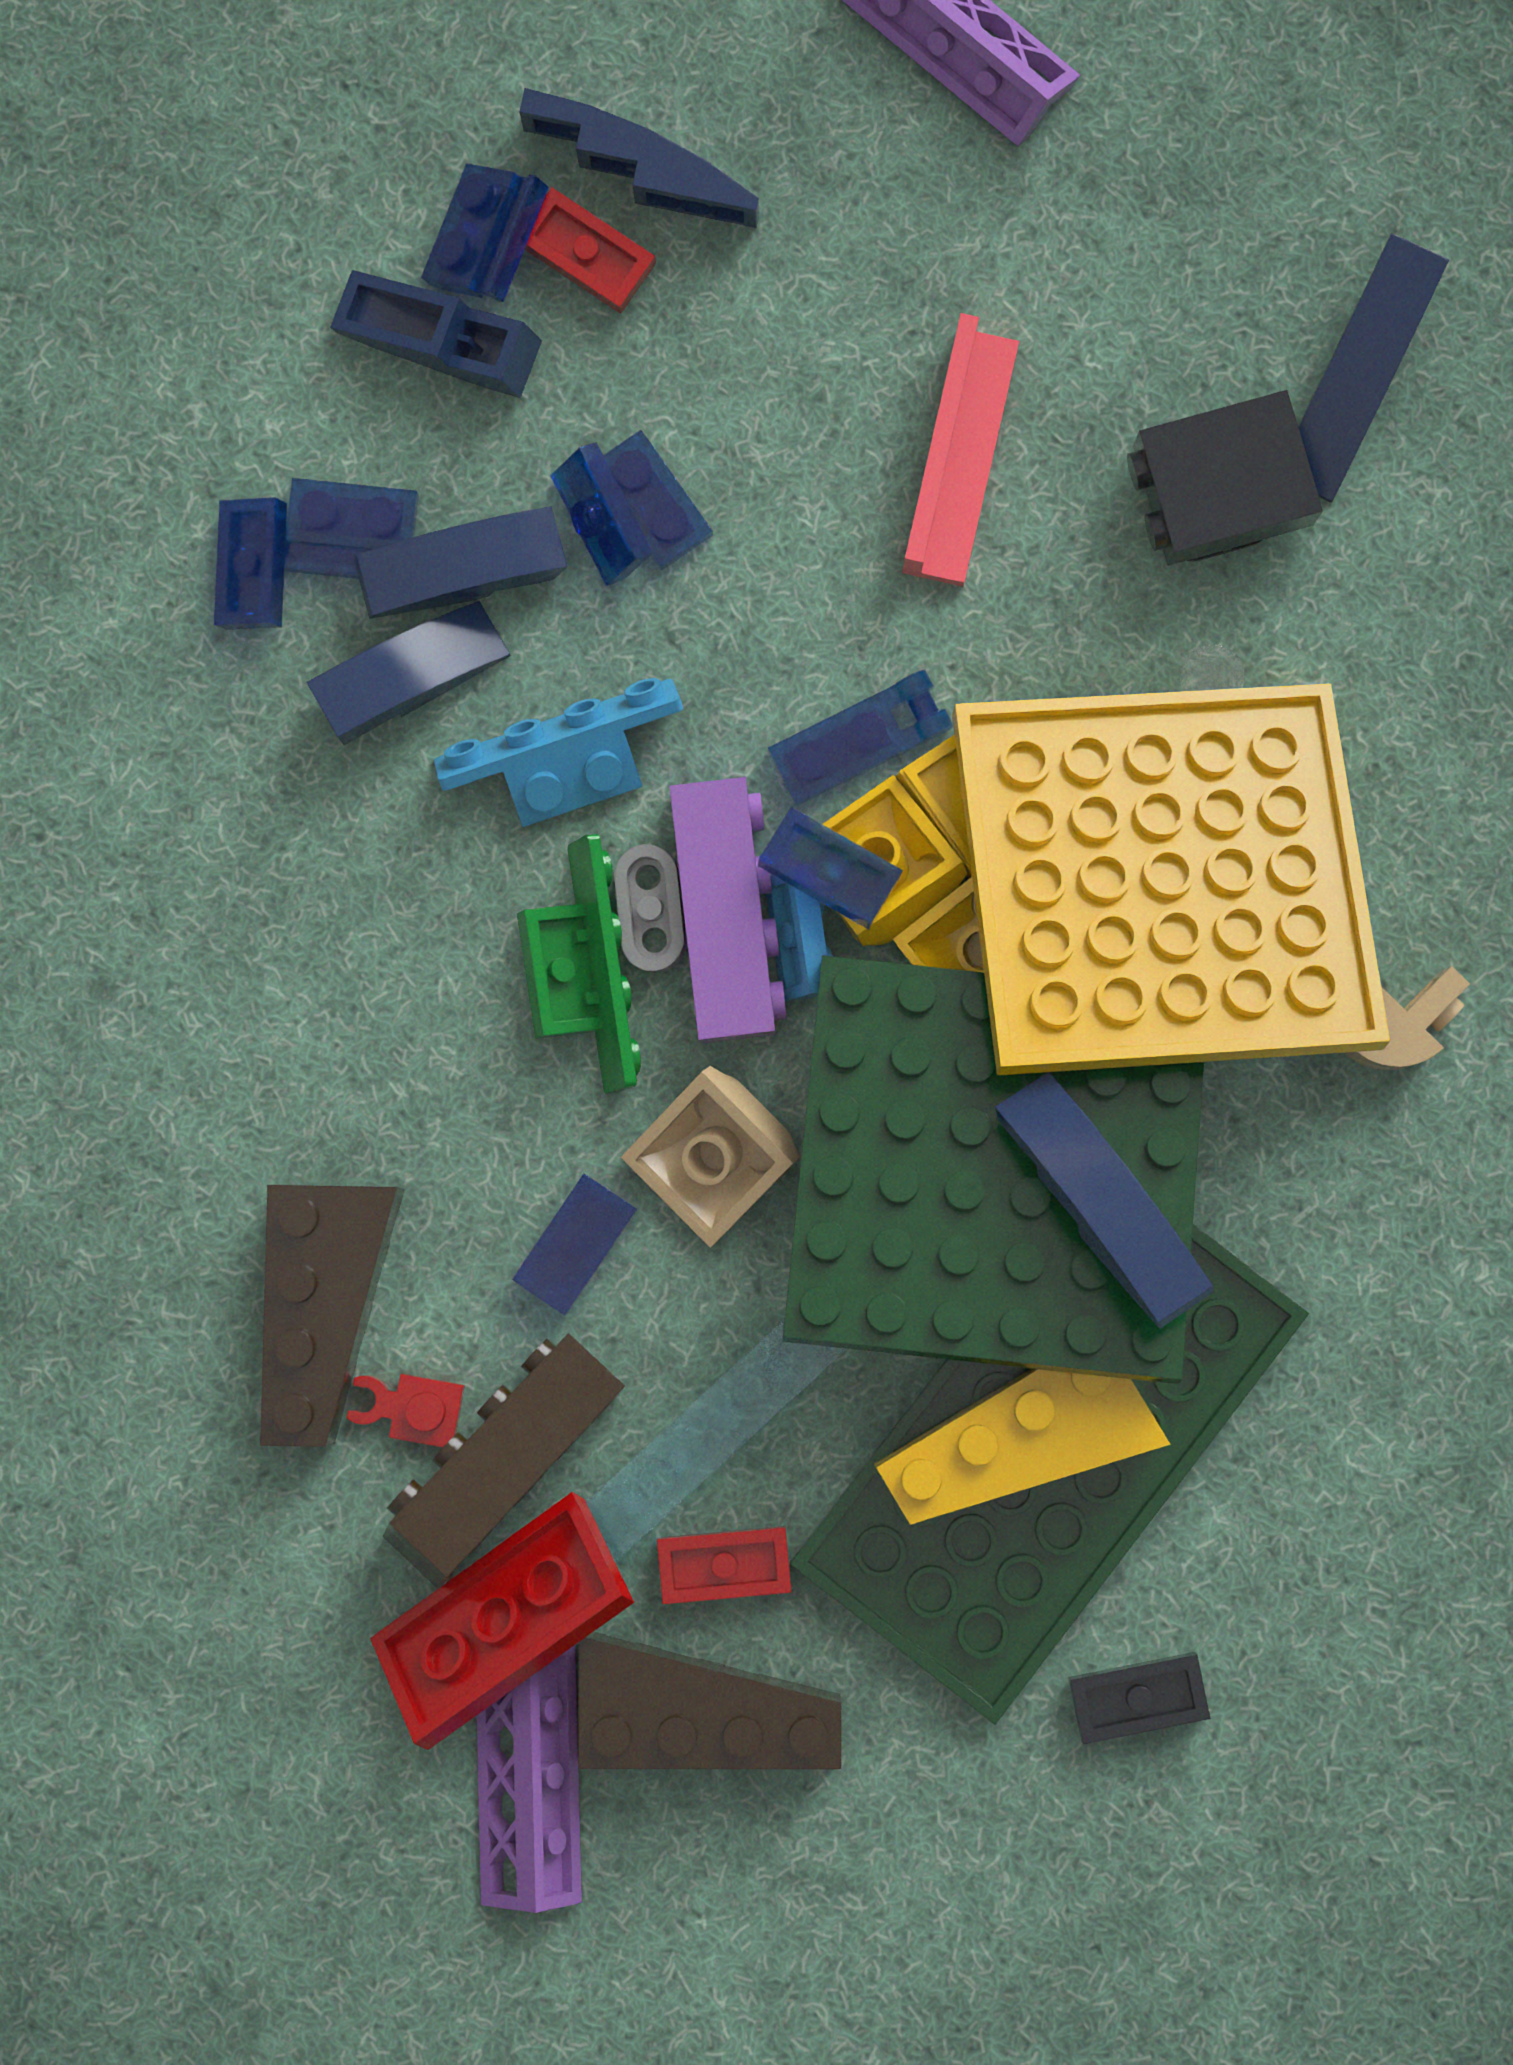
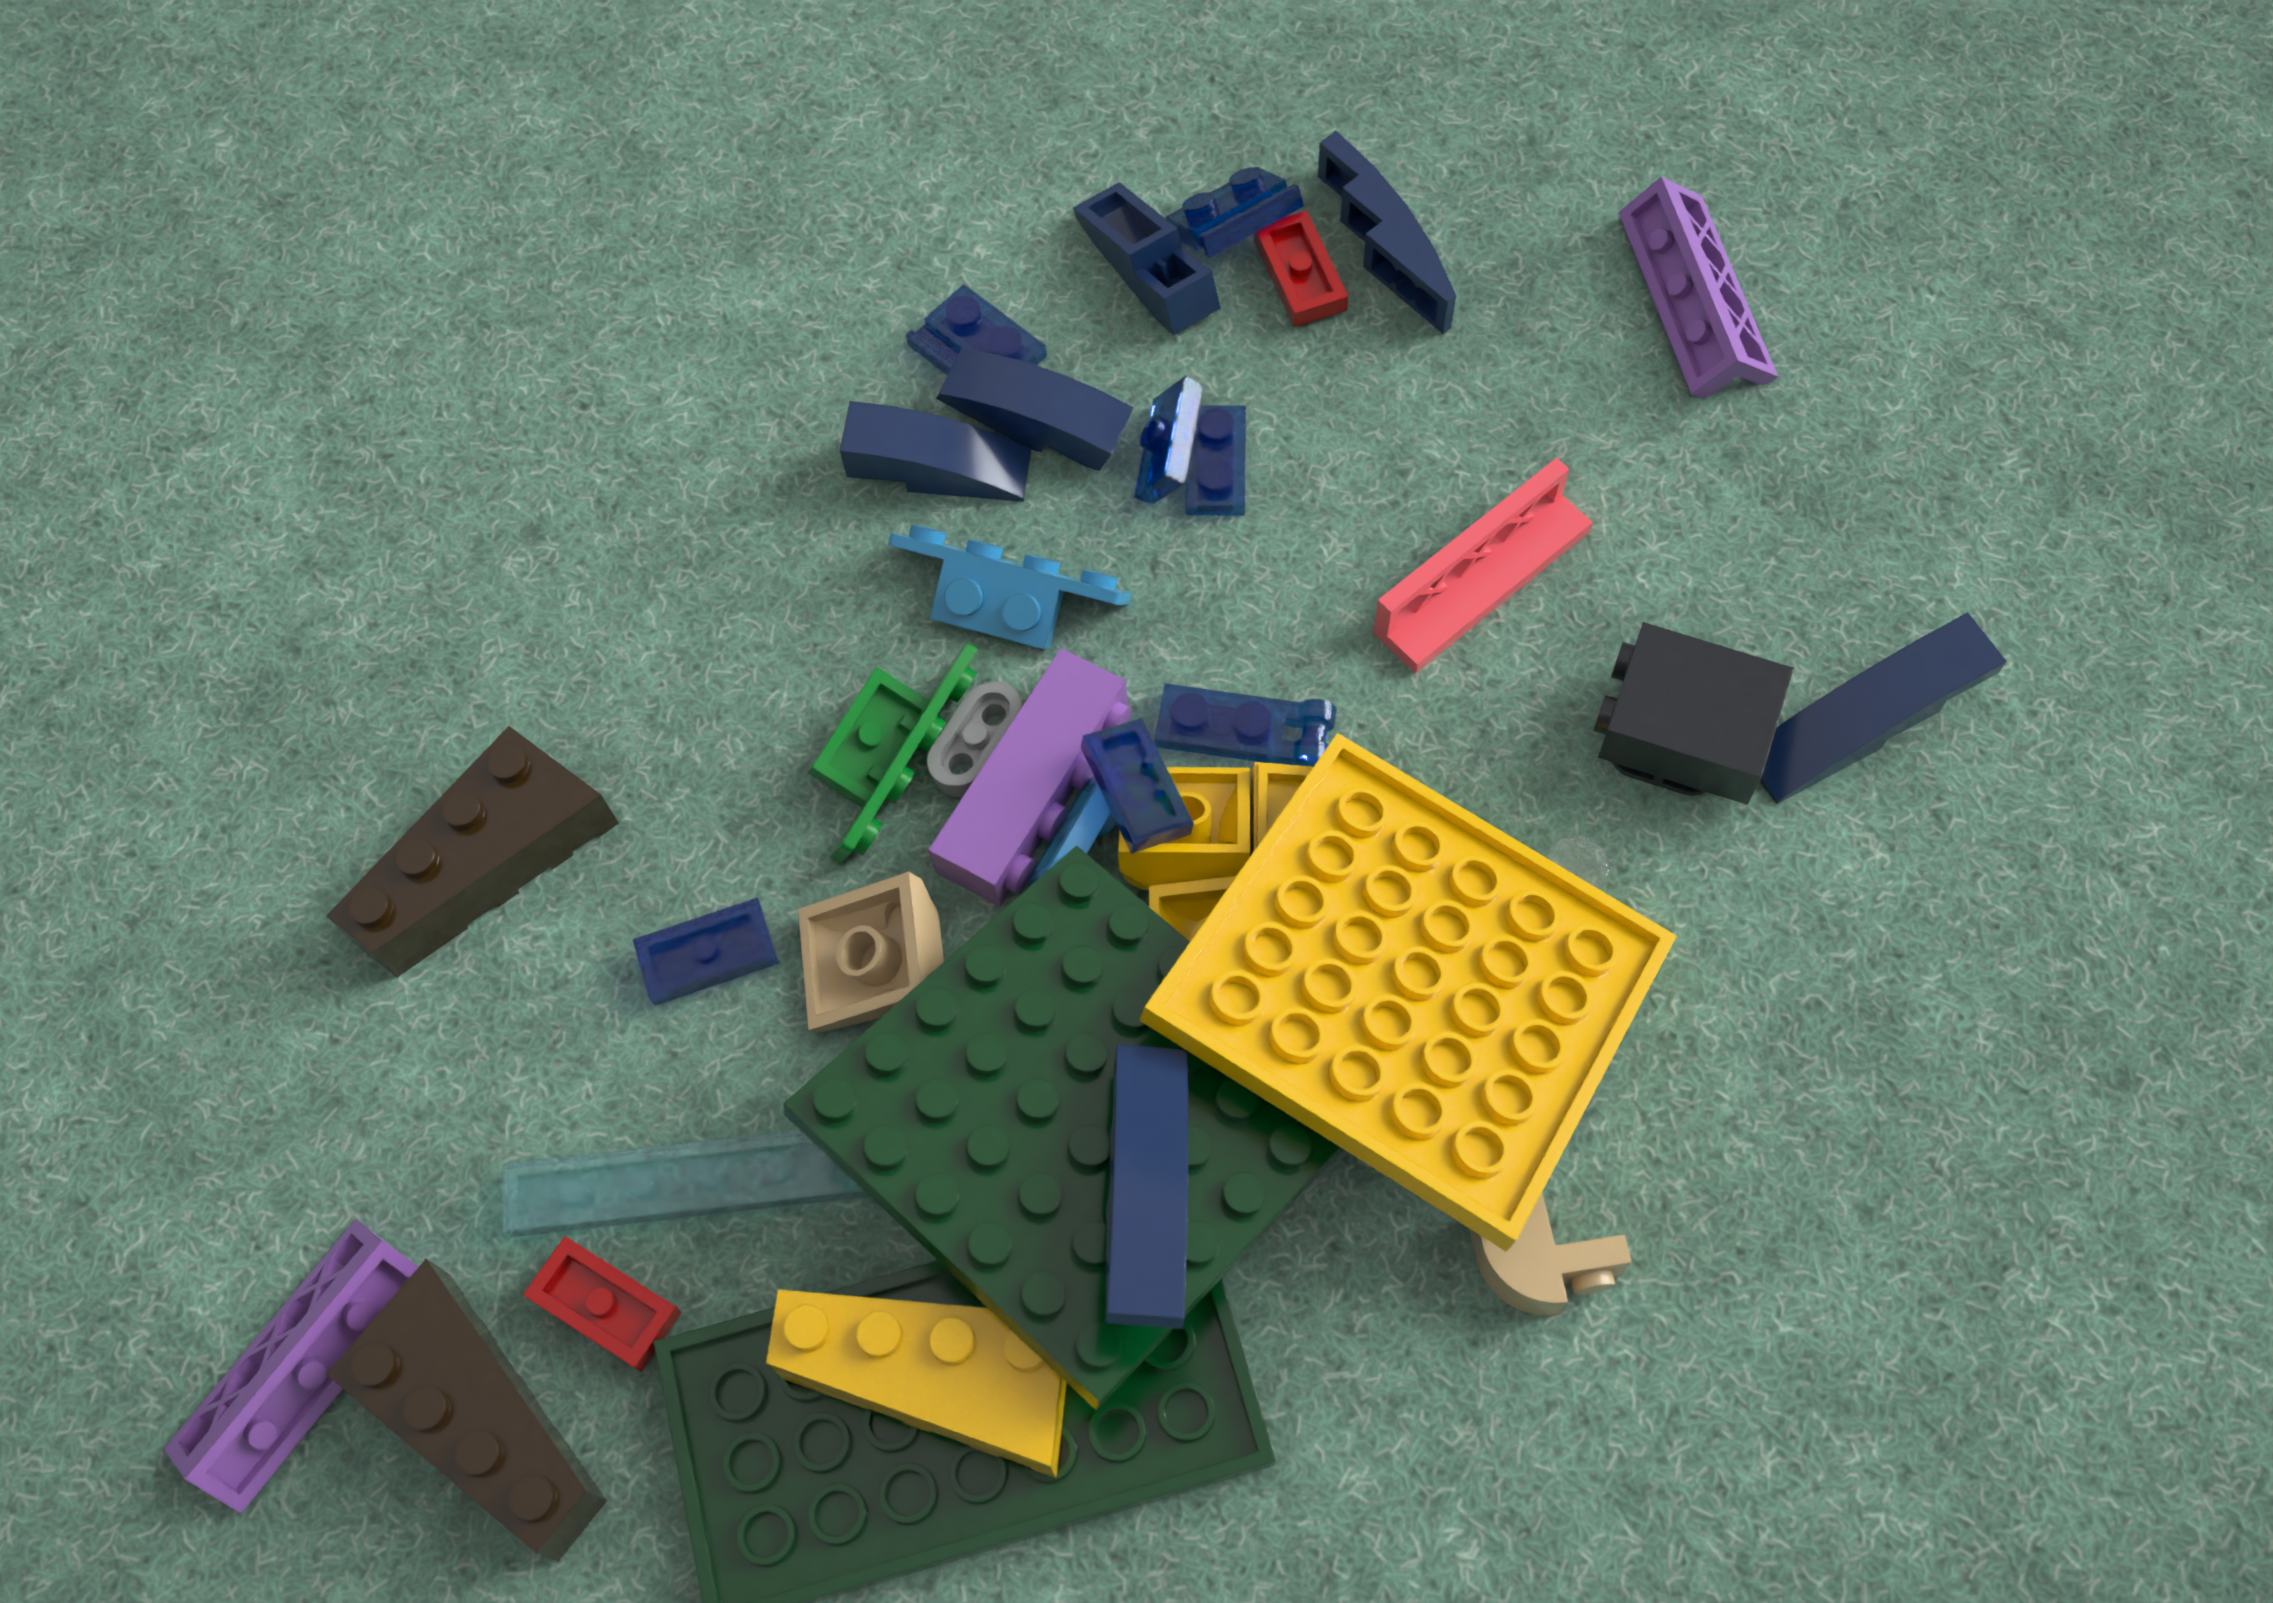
camera: 35 degrees right, 20 degrees down
(250, 563) = (885, 318): clear blue plate -> none
(420, 1409) = (479, 996): red plate -> none
(500, 1621) = (379, 1200): red plate -> none
(501, 1459) = (494, 1071): dark brown wedge -> none

